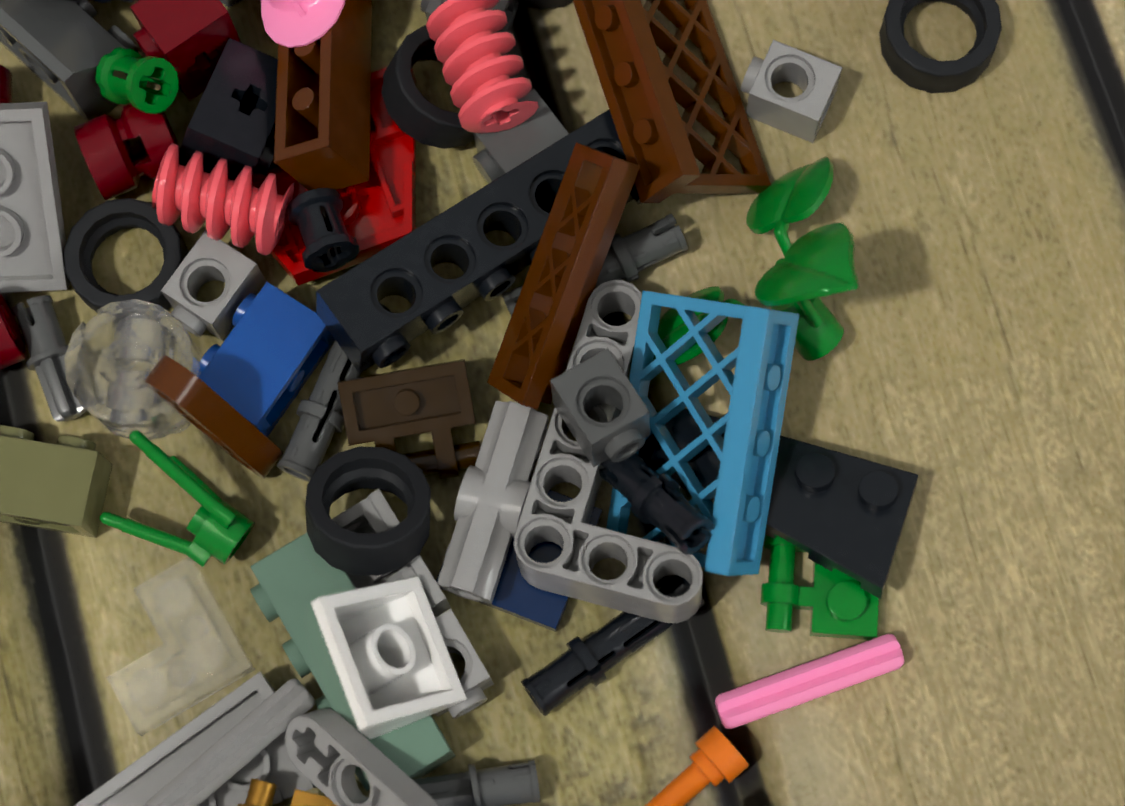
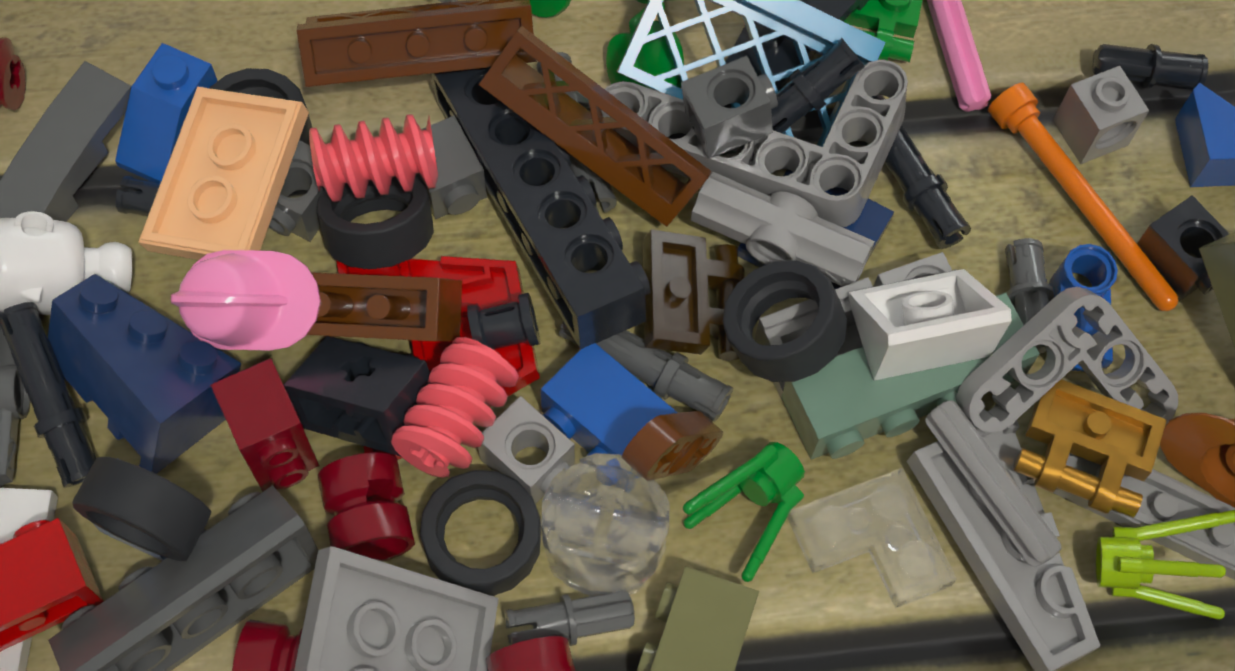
camera: 90 degrees left, 10 degrees down
(134, 88) = (312, 449): green bush -> none

